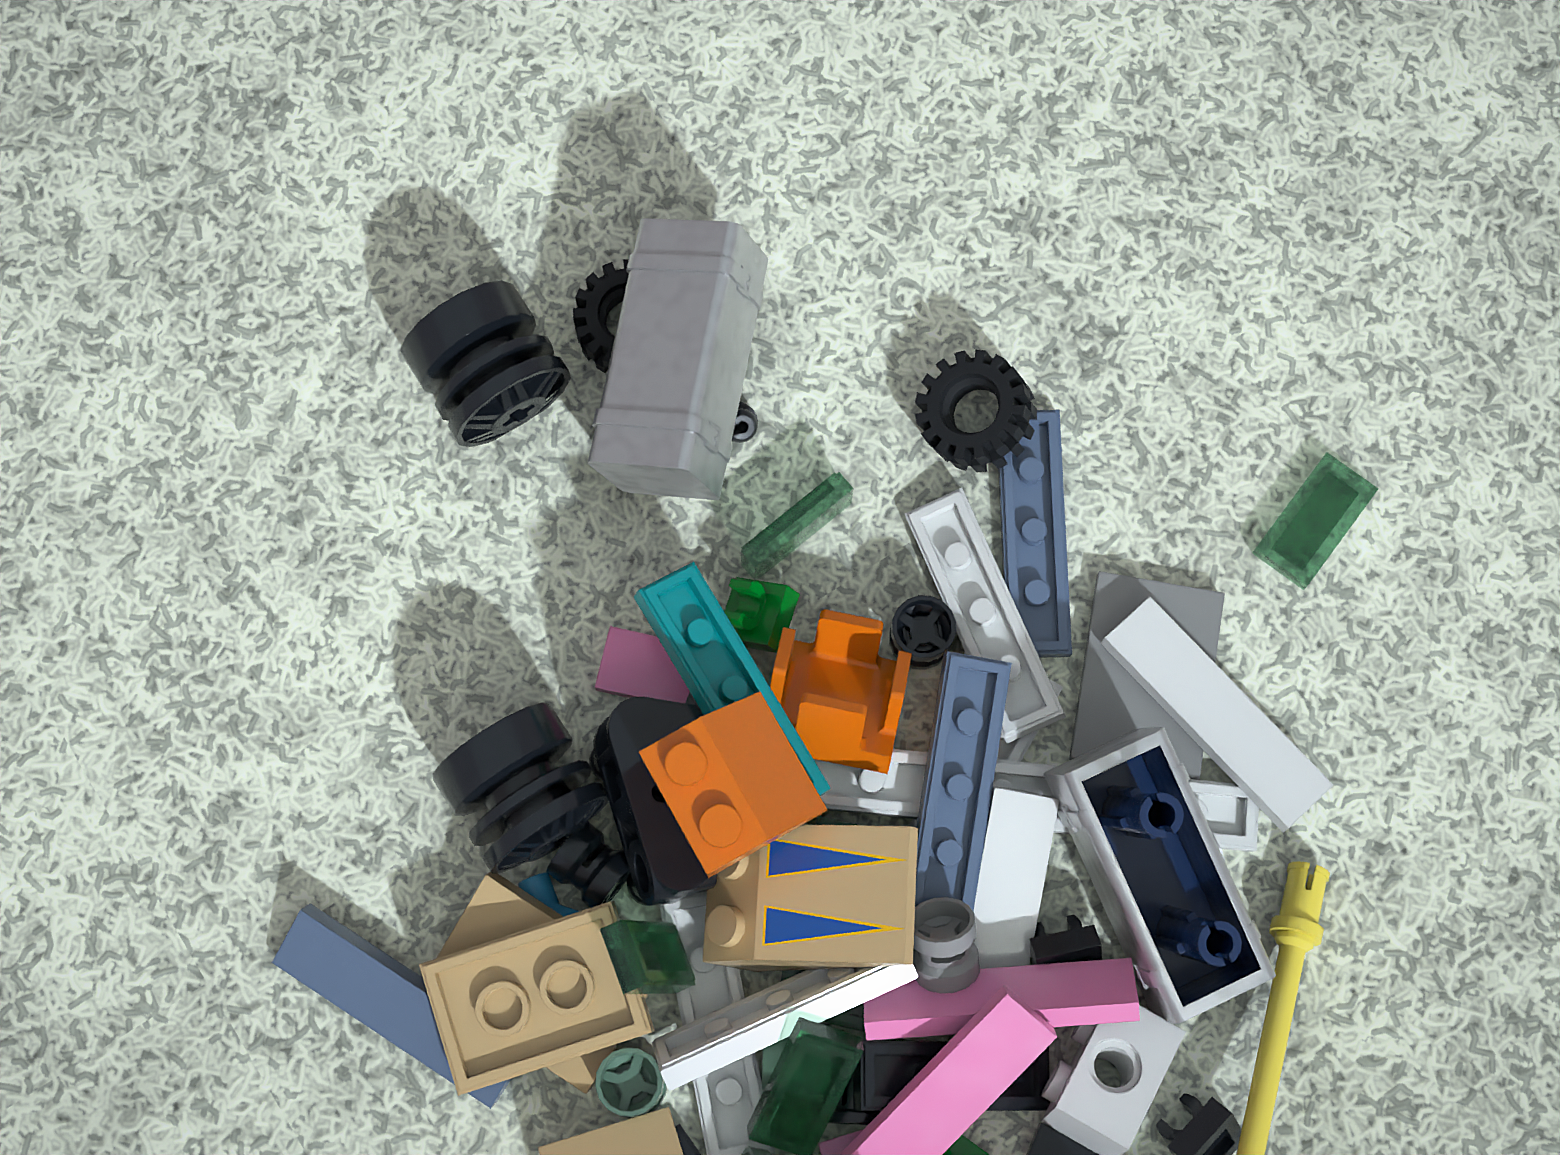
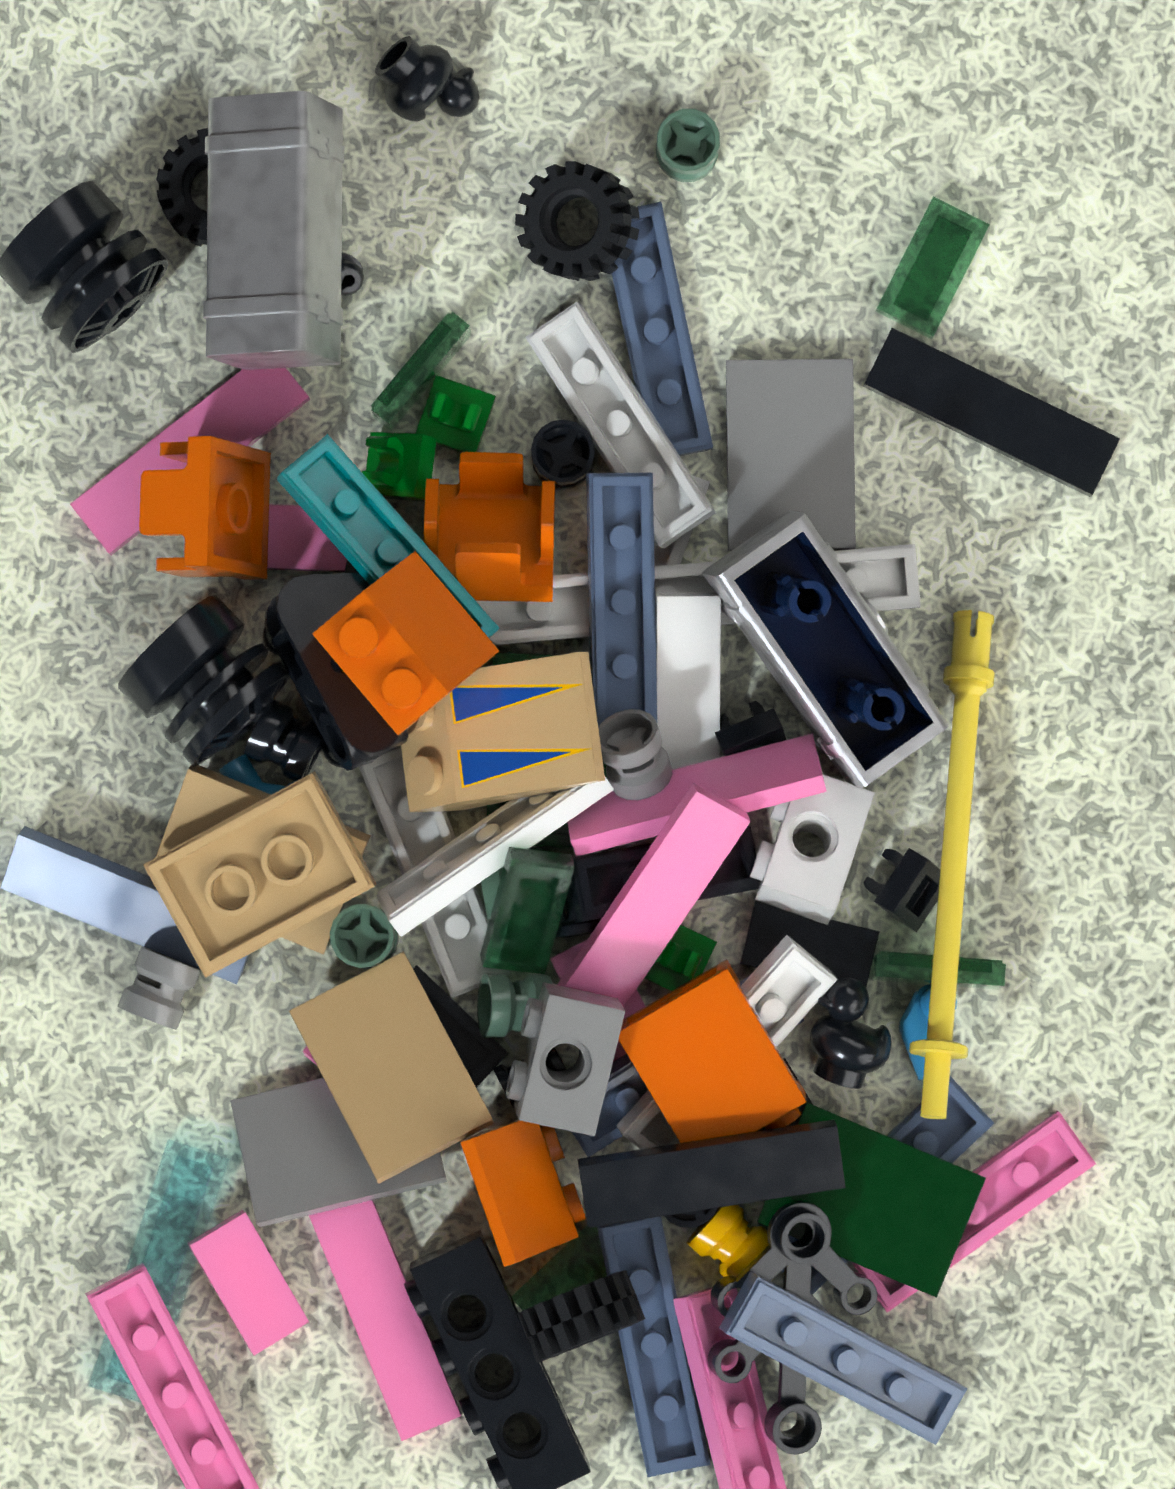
camera: 10 degrees left, 10 degrees up
(409, 1098) = (155, 1002): none -> light grey wheel
(552, 565) = (236, 411): none -> bright pink tile
(569, 611) = (214, 504): none -> orange panel
(648, 957) = (357, 817): clear green tile -> none
(823, 575) = (456, 415): none -> green tile
(849, 249) = (420, 76): none -> black animal
(1100, 349) = (687, 135): none -> sand green wheel
(1217, 714) = (860, 482): white tile -> none
(1355, 671) = (991, 412): none -> black tile

